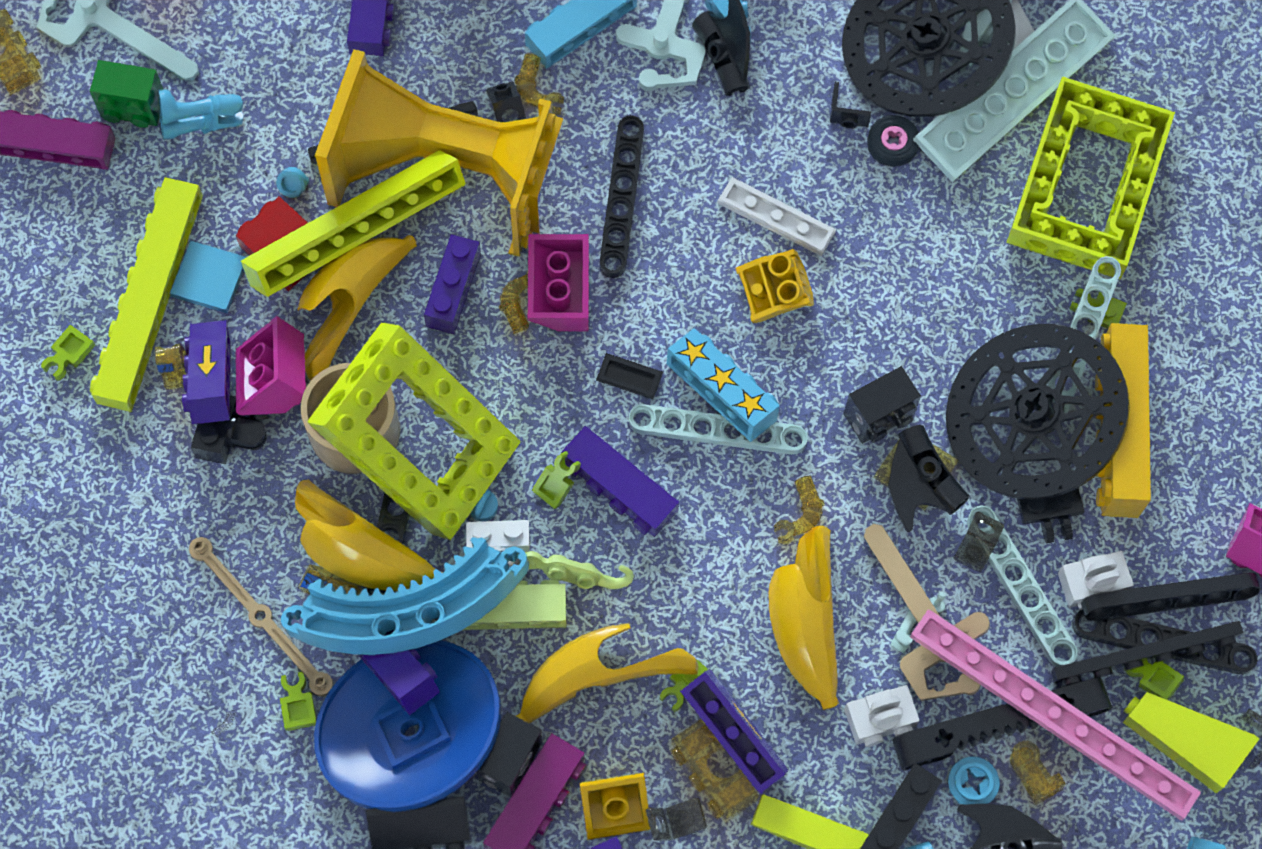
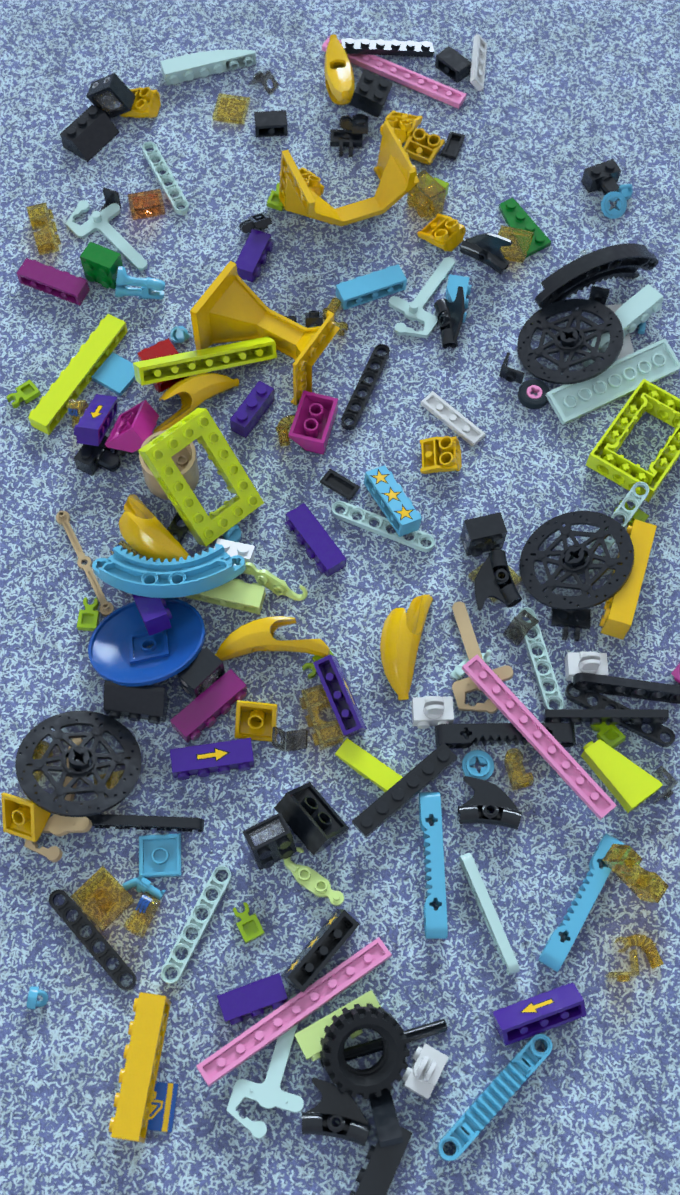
camera: 15 degrees right, 5 degrees down
(554, 482) = (276, 531): lime plate -> none
(811, 509) = (424, 584): clear yellow piece -> none

